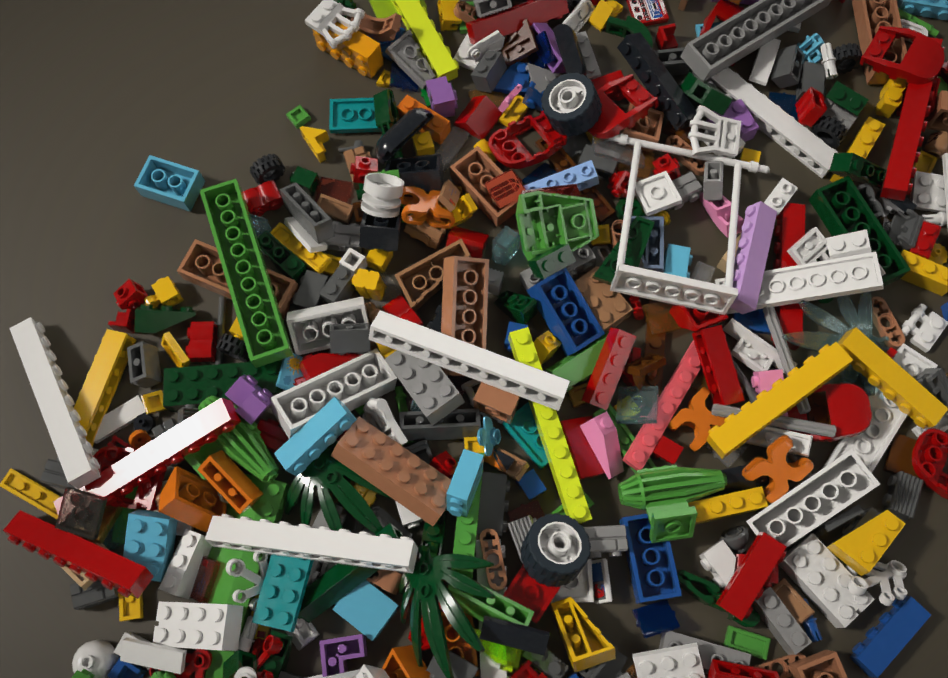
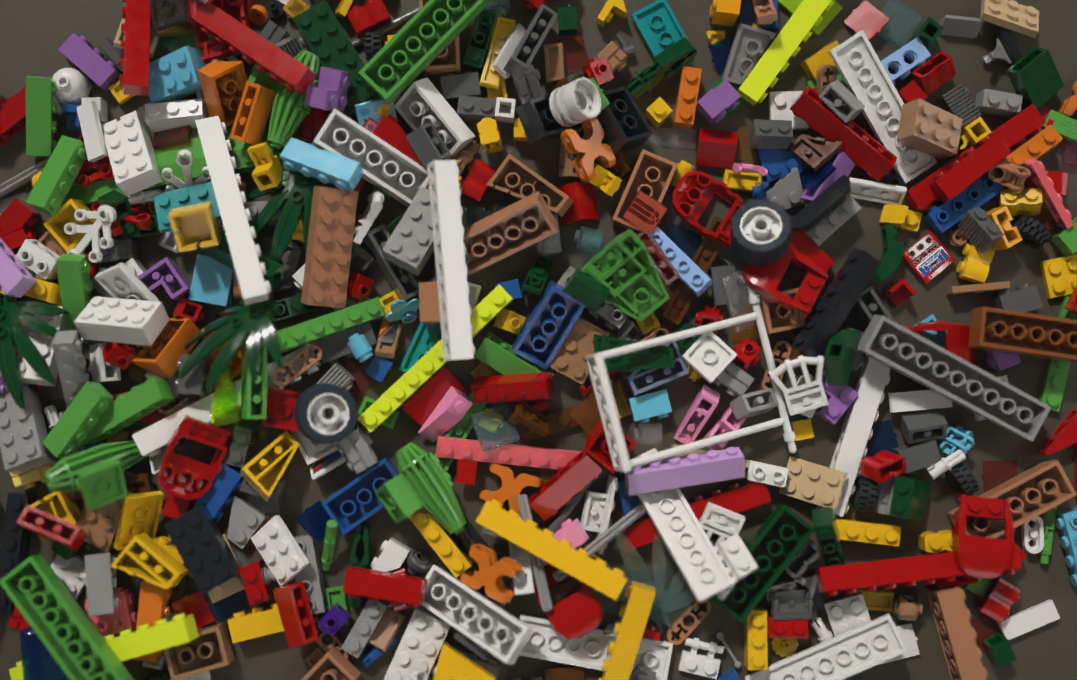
camera: 65 degrees right, 15 degrees up
(83, 627) = (90, 61): none -> medium lavender brick
(287, 493) = (268, 167): none -> yellow brick
(305, 588) = (196, 224): none -> yellow piece
(377, 647) = (186, 306): none -> red brick
(401, 133) = (654, 85): black brick -> none
(449, 195) = (610, 163): medium nougat tile -> none
(464, 483) = (340, 311): medium azure brick -> none
(491, 42) = (799, 121): white piece -> none
(505, 489) = (360, 347): none -> medium azure brick
(514, 635) = (237, 411): black tile -> none
(684, 616) = (329, 544): none -> bright green piece
(701, 231) = (697, 415): none -> bright pink slope
(762, 649) = (334, 619): none -> dark purple brick
(803, 165) = (814, 483): none -> tan plate
(846, 33) = (997, 473): none -> clear red piece
(908, 303) = (720, 636): none -> light grey hinge

